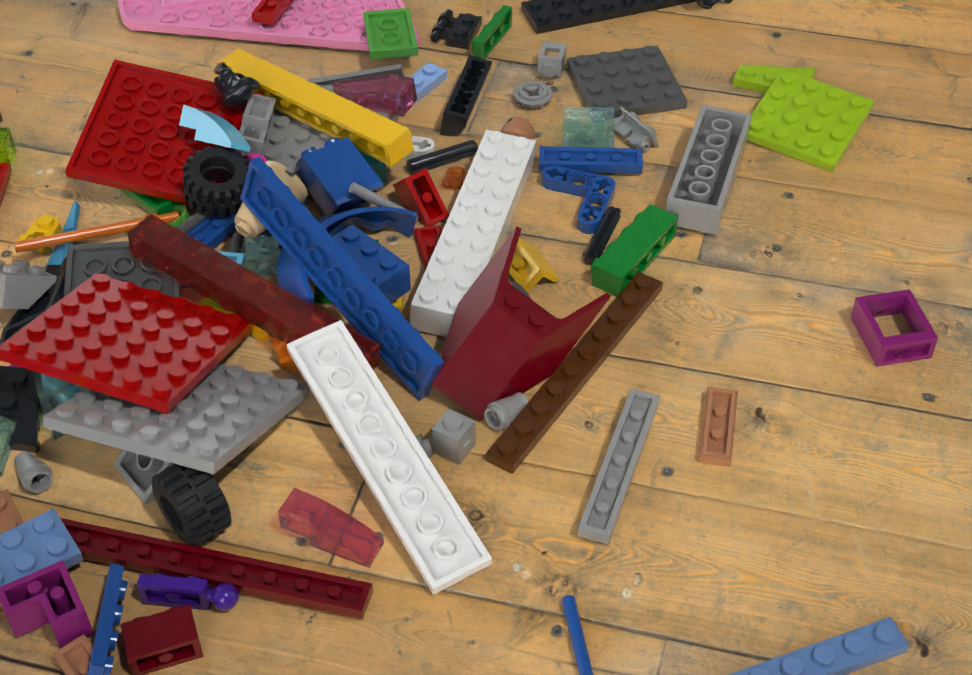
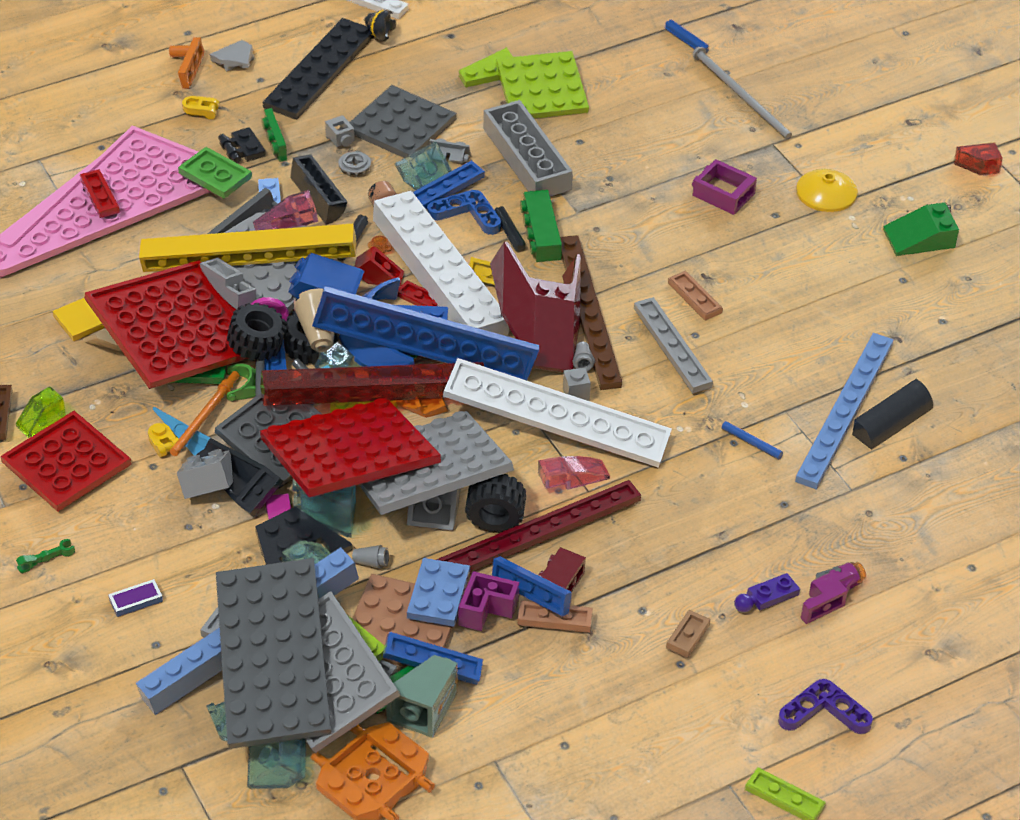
camera: 45 degrees left, 0 degrees up
(180, 591) = (543, 548): dark purple plate -> none
(213, 129) = (218, 298): medium azure slope -> none
(233, 87) = (190, 265): black hair -> none
(372, 197) = (368, 283): light grey bar -> none

